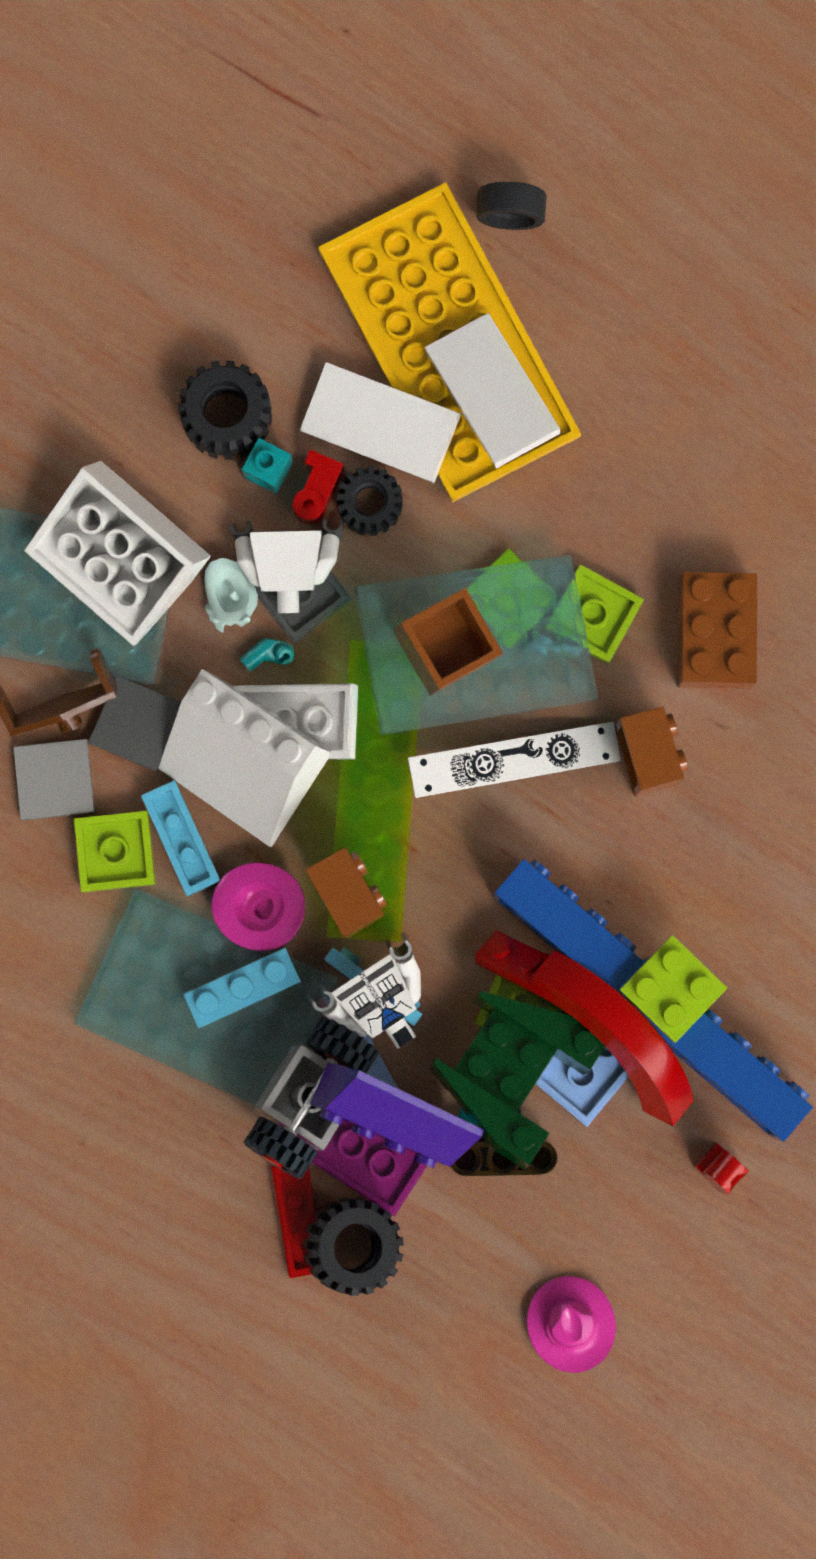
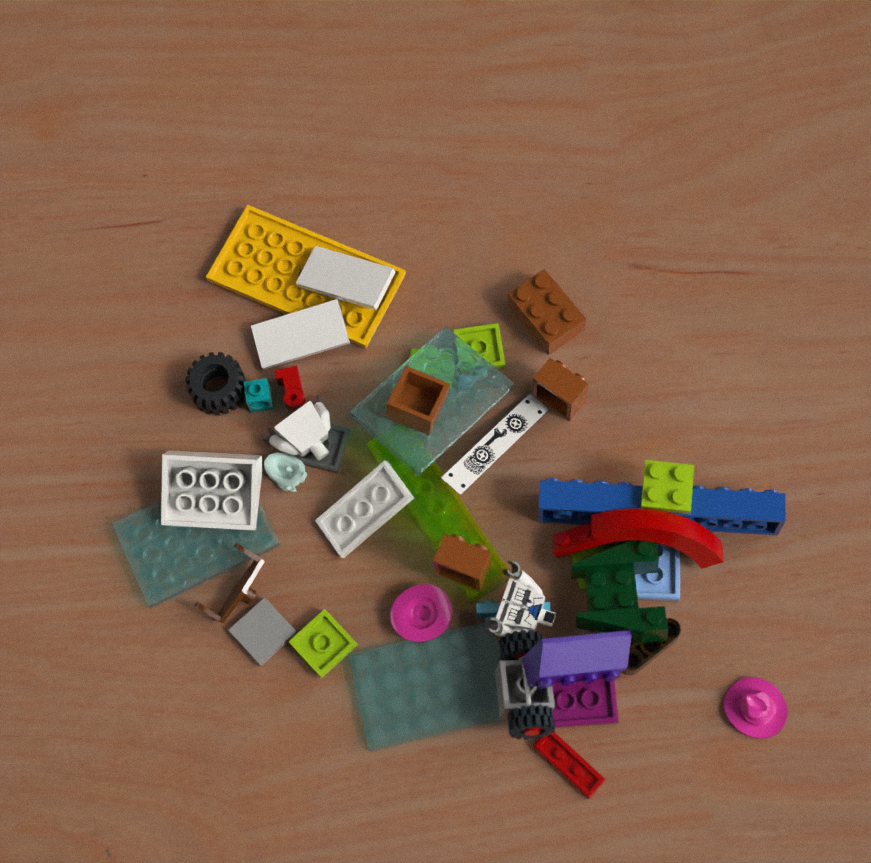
camera: 30 degrees left, 15 degrees down
(136, 724) = (286, 571): dark grey tile -> none
(181, 838) = (353, 610): medium azure plate -> none
(240, 757) = (353, 542): white slope -> none
(242, 988) = (445, 661): medium azure plate -> none
(270, 651) = (327, 485): teal arm -> none
(369, 479) = (323, 363): black tyre -> none
(383, 1251) = (623, 738): black tyre -> none
(511, 205) = (288, 191): black tyre -> none
(721, 1169) = (765, 566): red leg -> none

